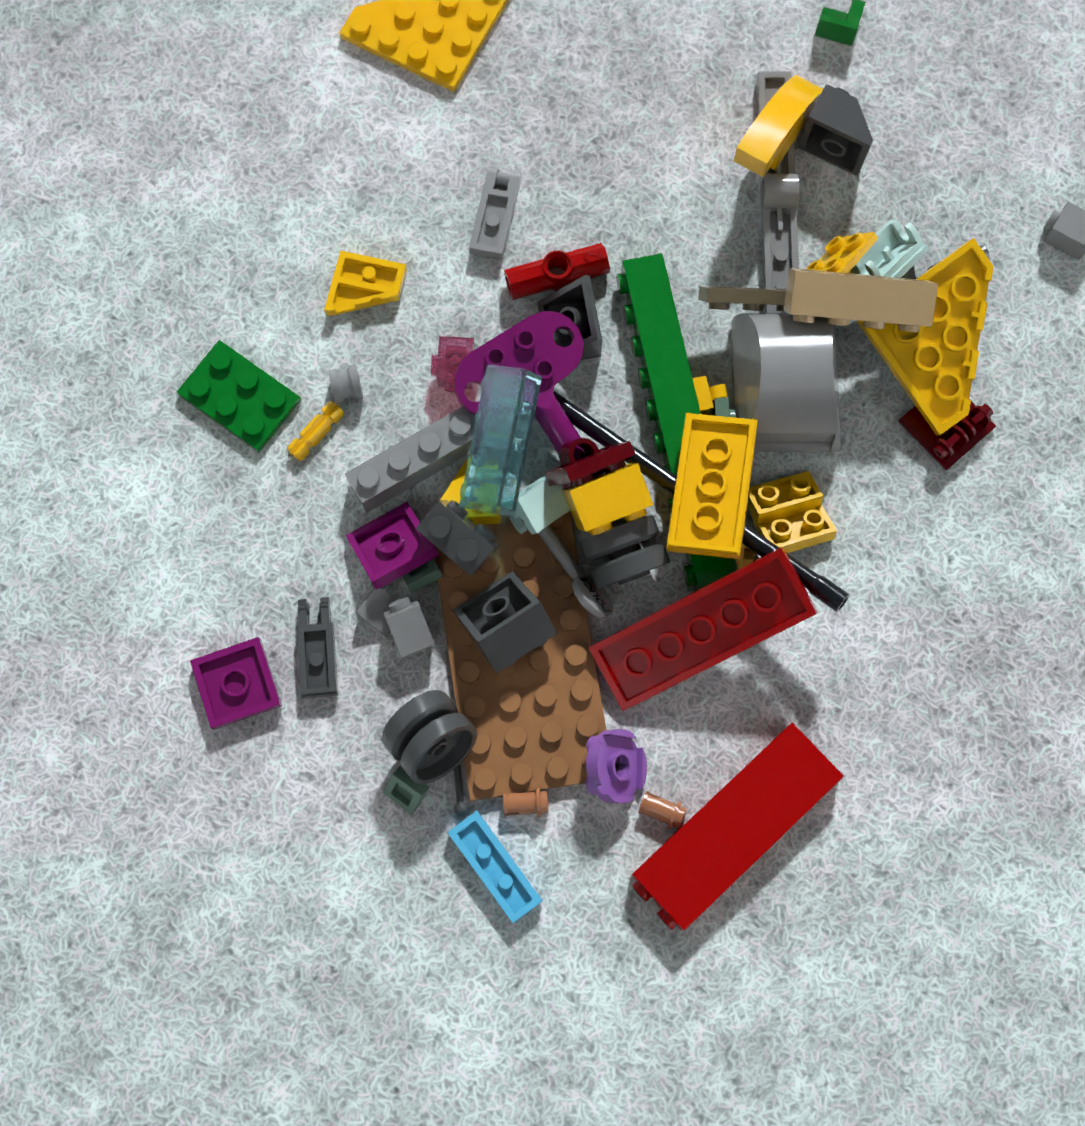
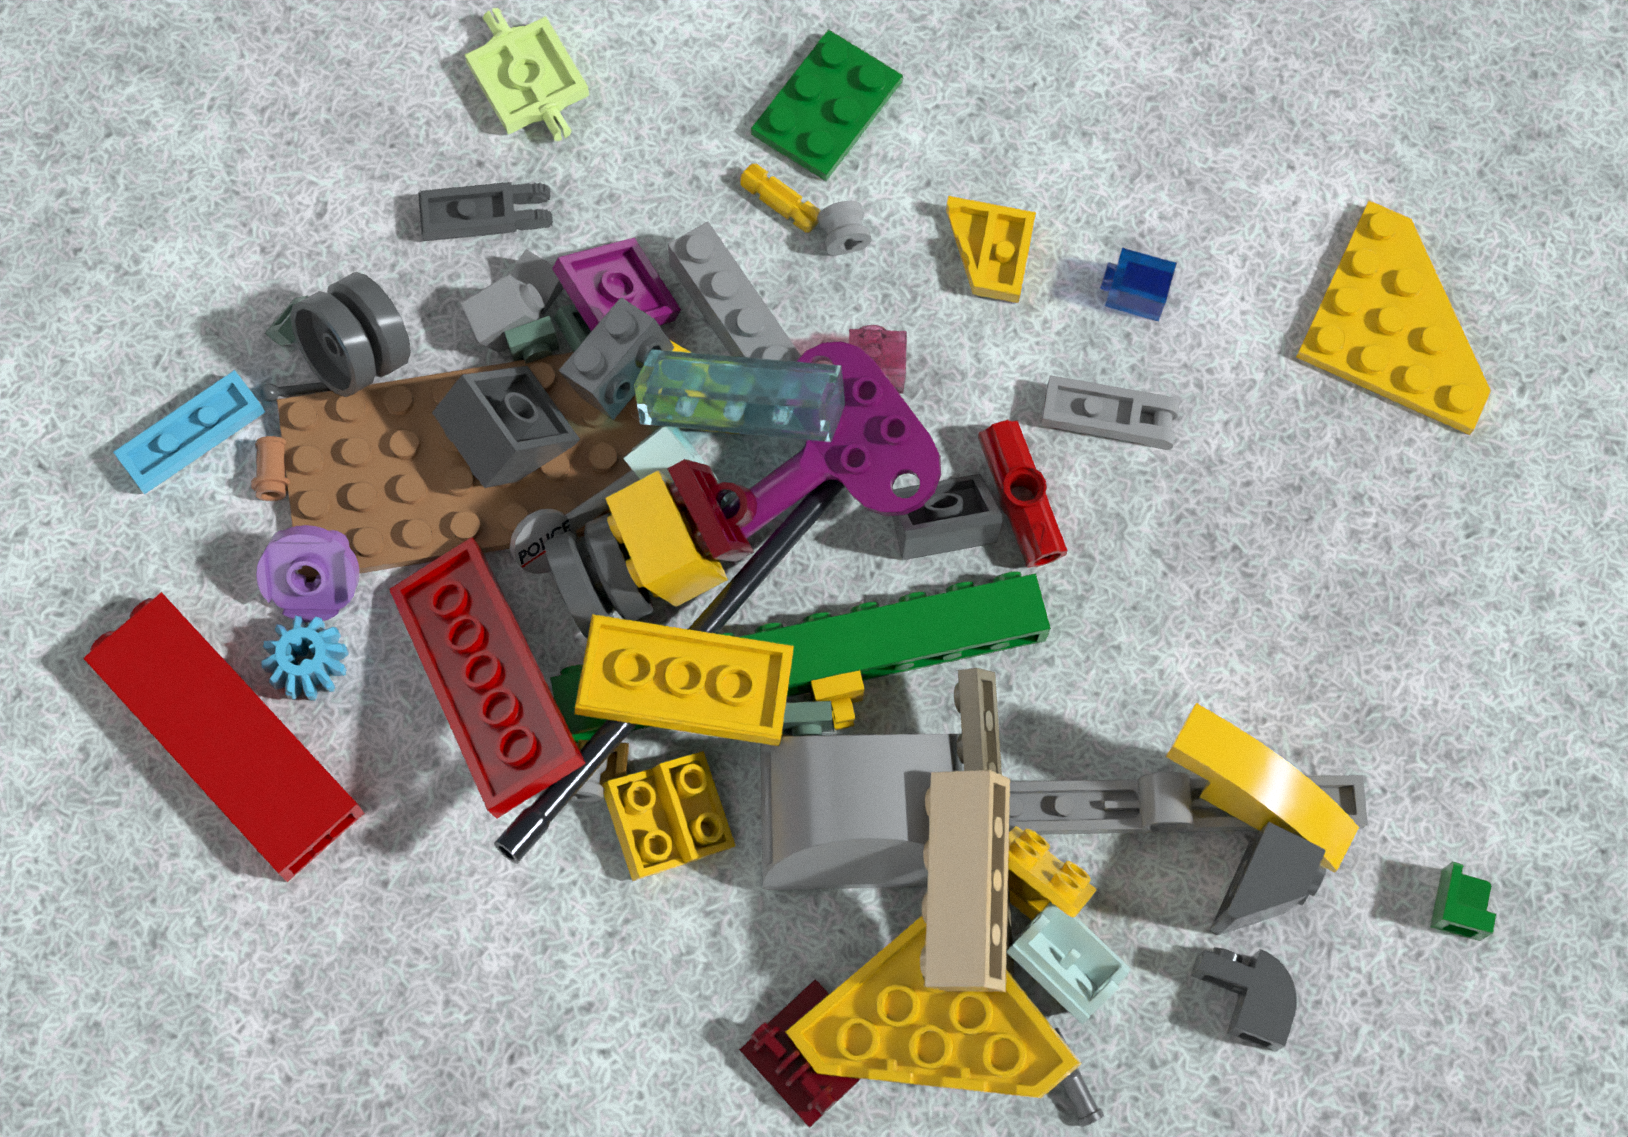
camera: 85 degrees right, 5 degrees down
(200, 616) = (526, 74): none -> yellowish green plate
(235, 683) = (440, 119): magenta plate -> none
(399, 185) = (1138, 283): none -> clear blue brick
(431, 607) = (532, 340): none -> sand green plate
(662, 810) = (248, 648): nougat pin -> none
(688, 764) = (312, 672): none -> medium azure gear
(904, 142) = (1265, 994): none -> dark grey brick

